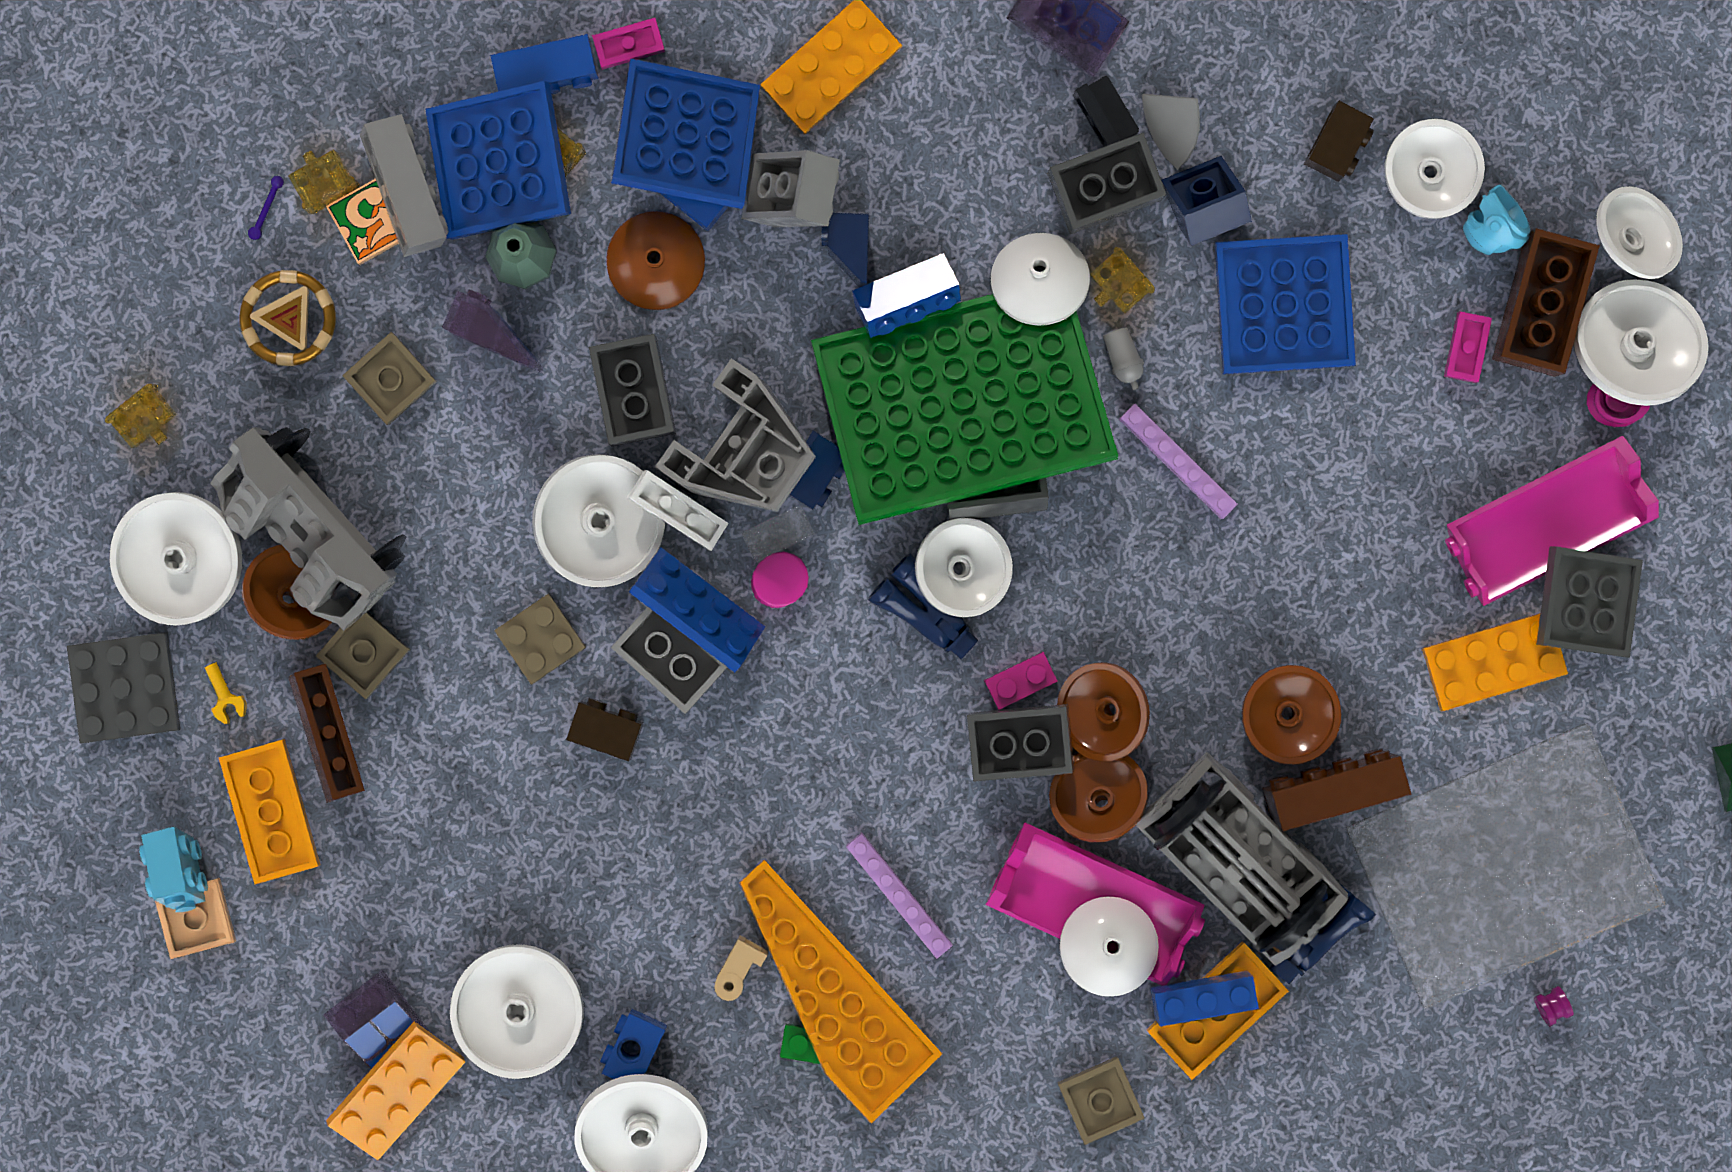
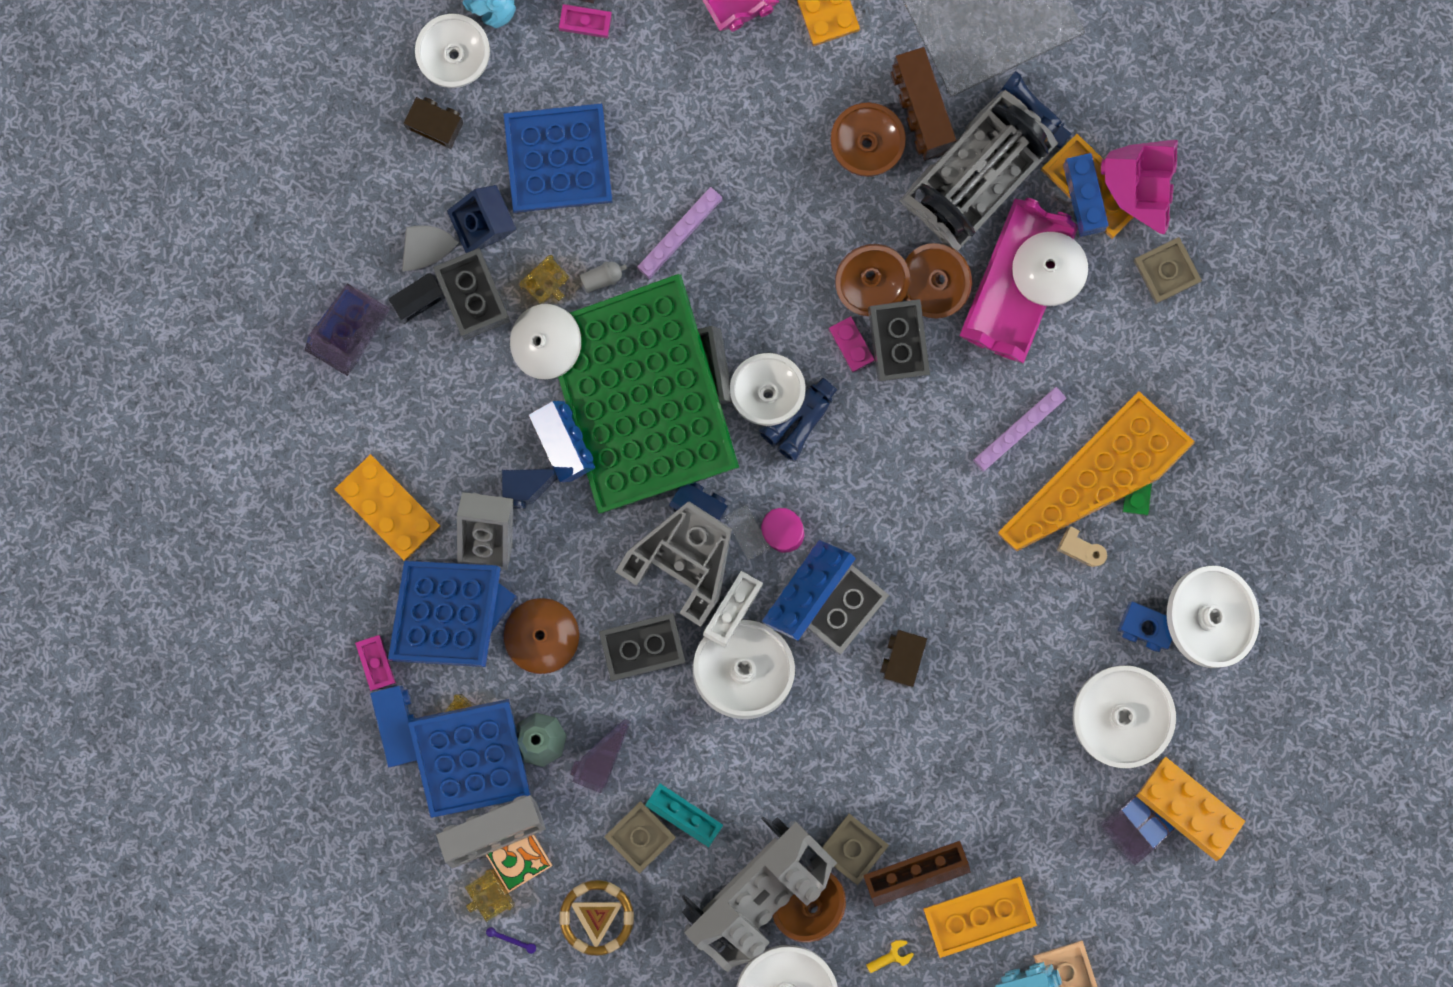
camera: 90 degrees left, 5 degrees down
(415, 436) = (684, 815): none -> teal plate
(540, 638) = (836, 712): dark tan plate -> none
(1222, 1073) = (1141, 180): none -> dark pink brick

